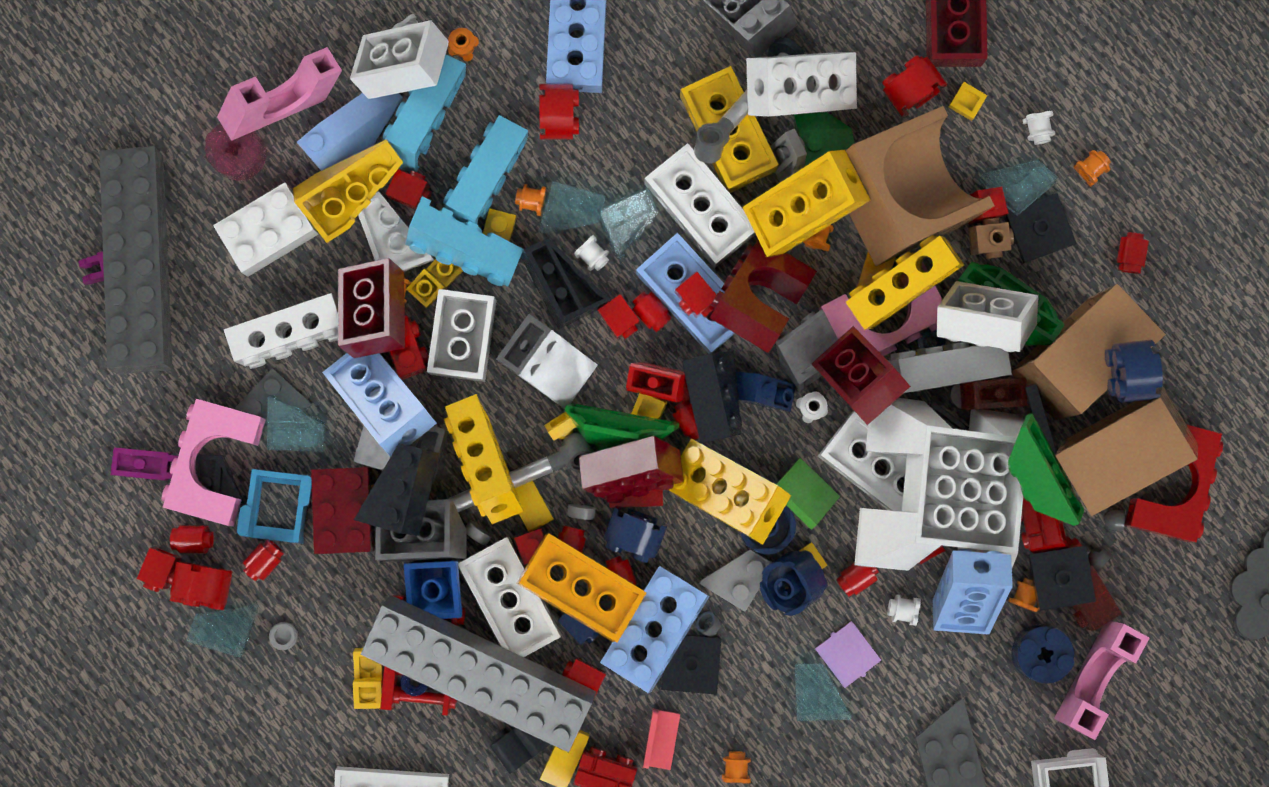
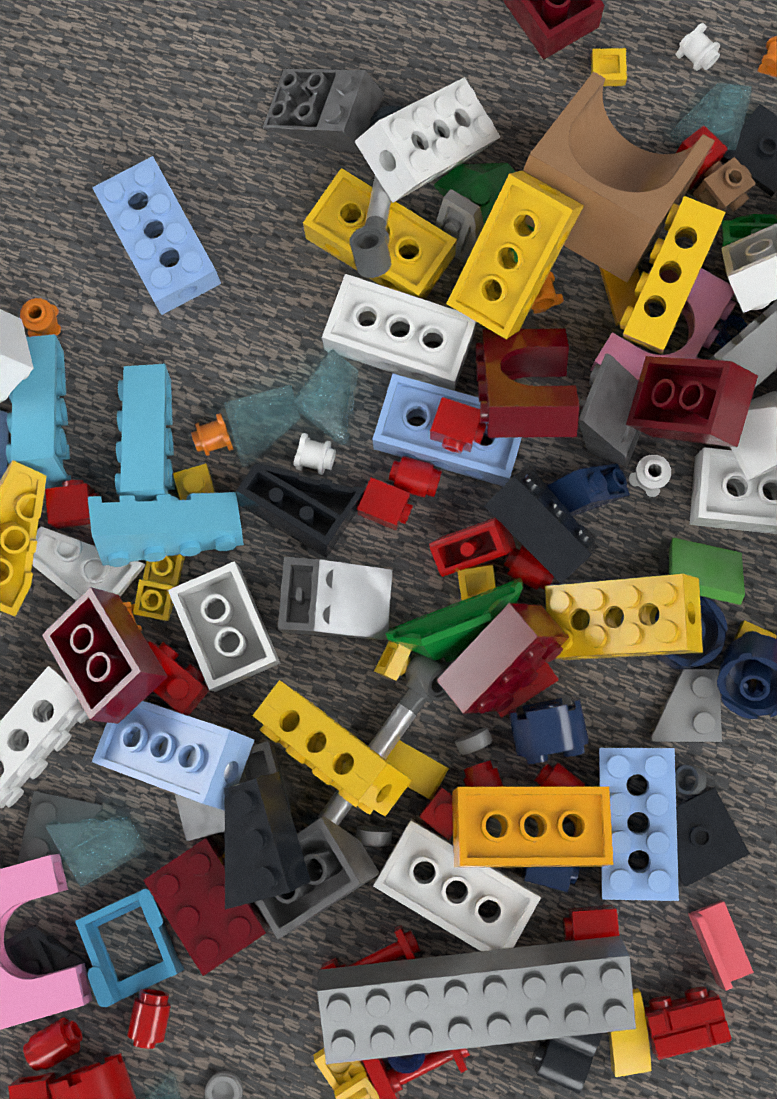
camera: 25 degrees left, 5 degrees down
(434, 587) = (363, 929): blue slope -> none
(557, 111) = (185, 325): red brick -> none
(914, 85) = (544, 79): red brick -> none

